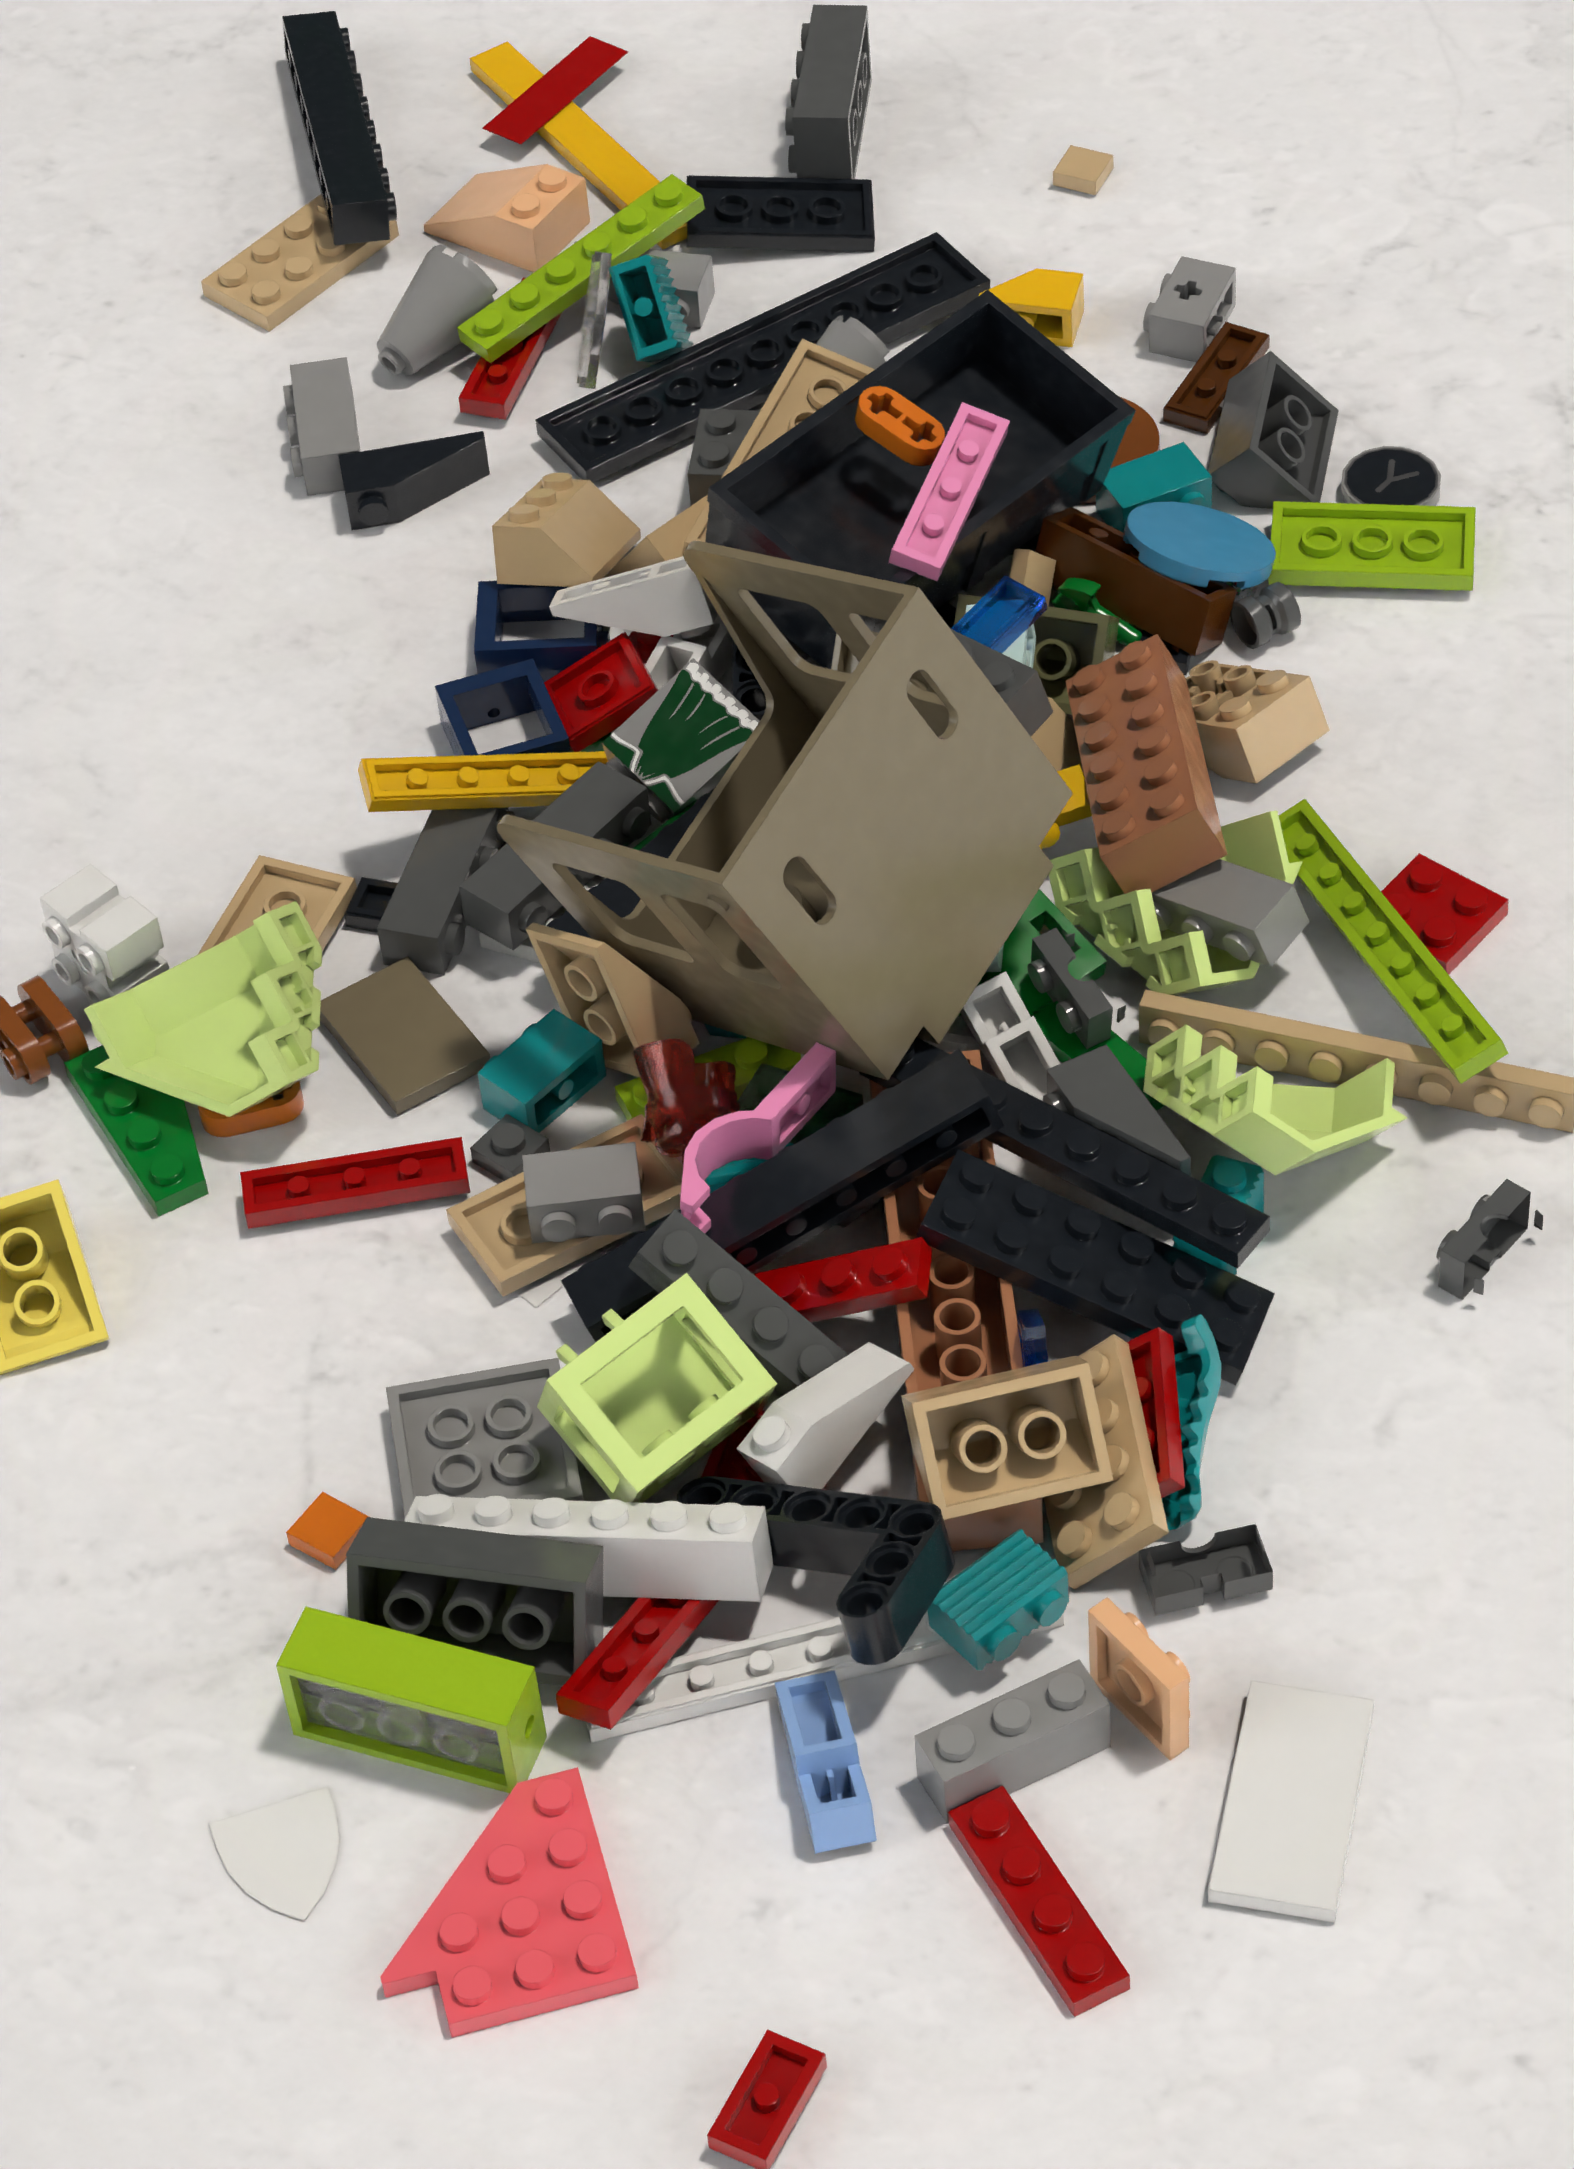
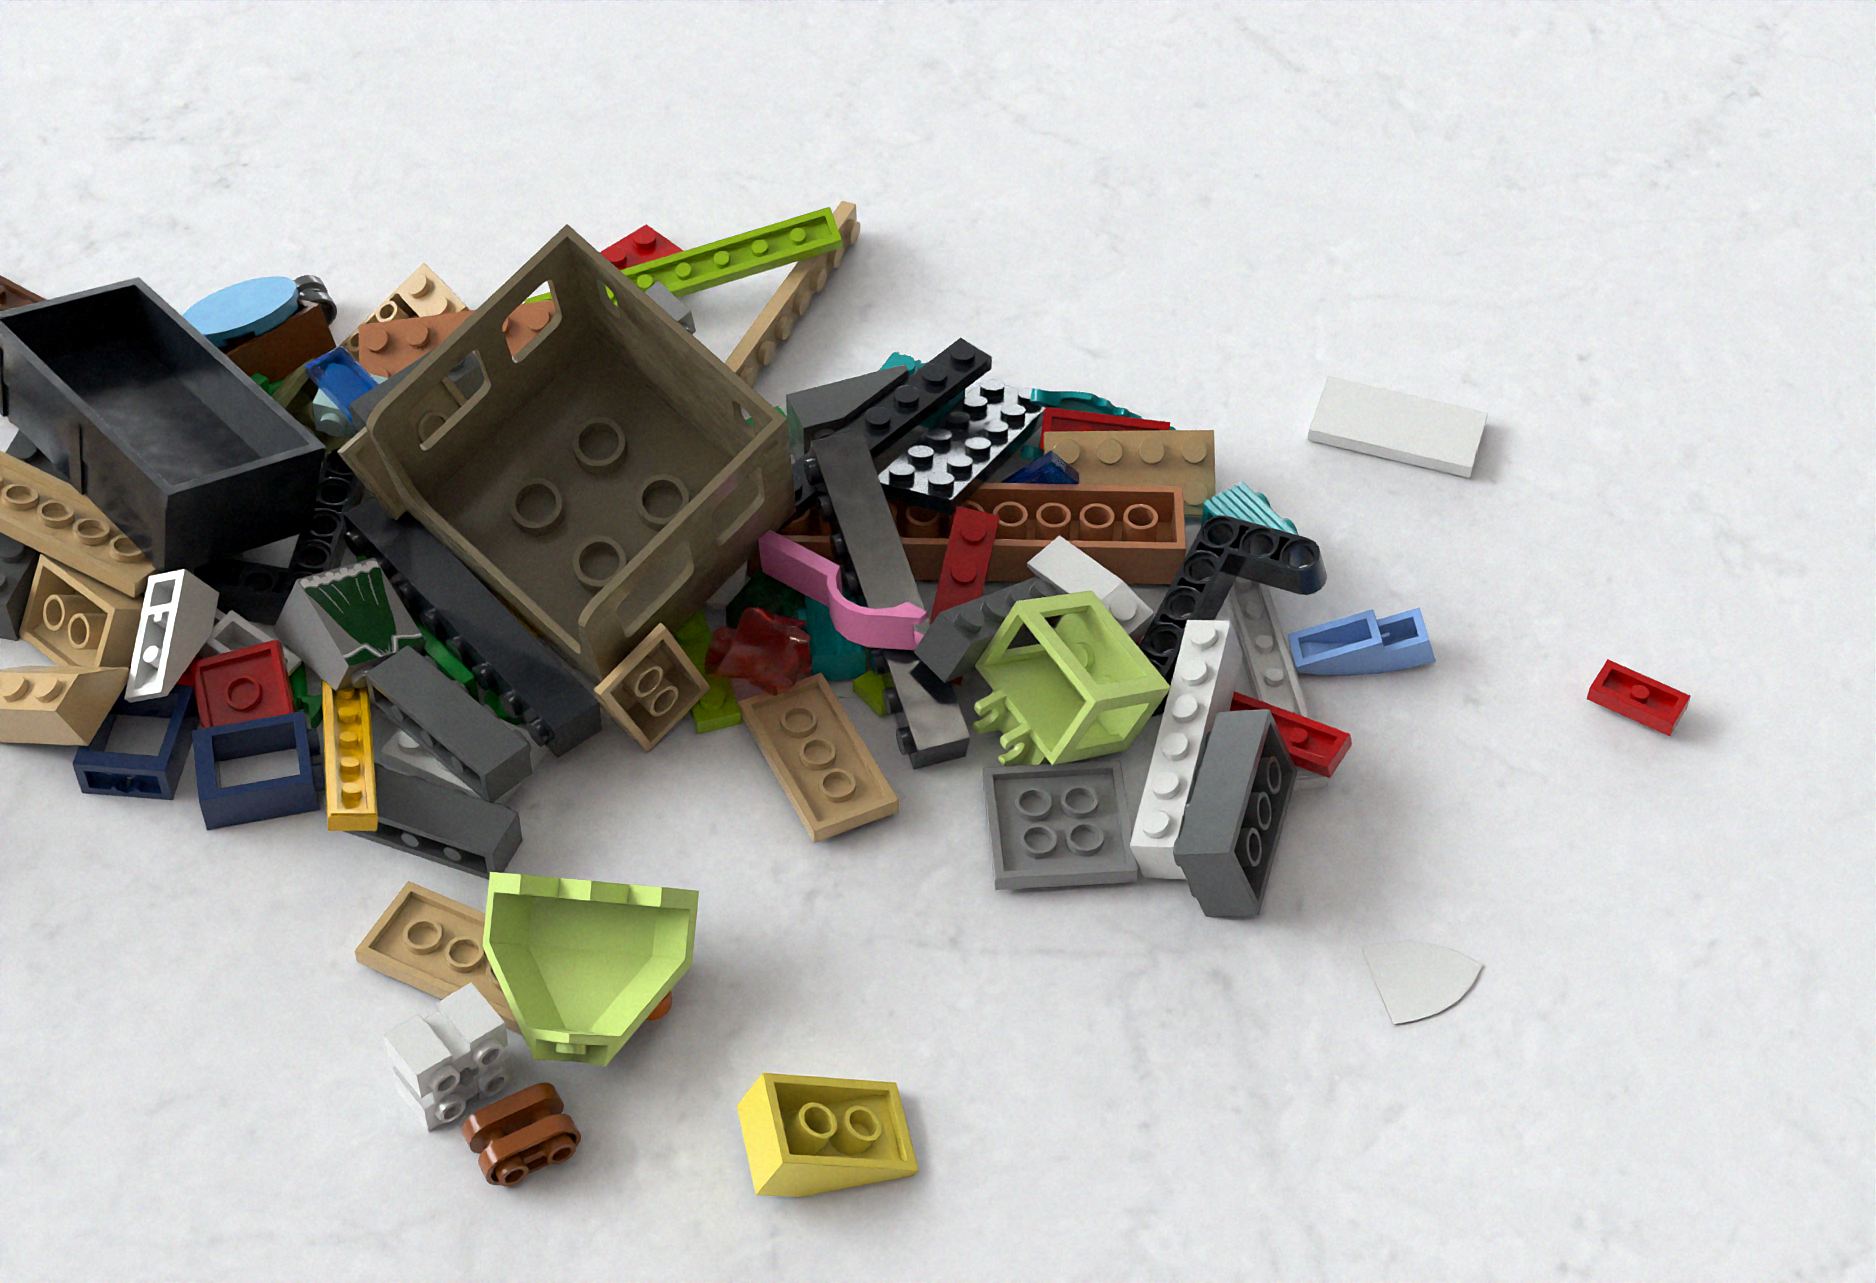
camera: 90 degrees left, 0 degrees up
(145, 1130) = (654, 1057): green wing -> none
(326, 1530) = (1122, 932): orange tile -> none
(354, 1182) = (762, 900): red plate -> none
(369, 904) = (434, 872): black tile -> none
(403, 1035) = (607, 849): dark tan tile -> none
(412, 1700) = (1319, 860): lime brick -> none
(503, 1146) = (742, 799): dark grey plate -> none
(522, 1917) = (1483, 825): coral wing -> none
(542, 1072) = (674, 765): teal brick -> none
(583, 1192) = (835, 727): light grey brick -> none
(899, 425) = (123, 388): orange beam -> none
(949, 491) = (210, 372): bright pink plate -> none
(1008, 1437) = (1139, 483): tan slope -> none
(1014, 1738) = (1359, 543): light grey brick -> none
(1039, 1901) = (1471, 554): red plate -> none
(1139, 1677) = (1324, 465): light nougat plate -> none
(1228, 1563) = (1229, 447): dark grey piece -> none
(1264, 1120) = (838, 338): yellowish green panel -> none
(1272, 437) = (79, 267): dark grey slope -> none
(1373, 545) = (256, 236): lime plate -> none
(1391, 478) = (187, 227): black tile -> none
(1490, 1232) = (967, 281): dark grey piece -> none

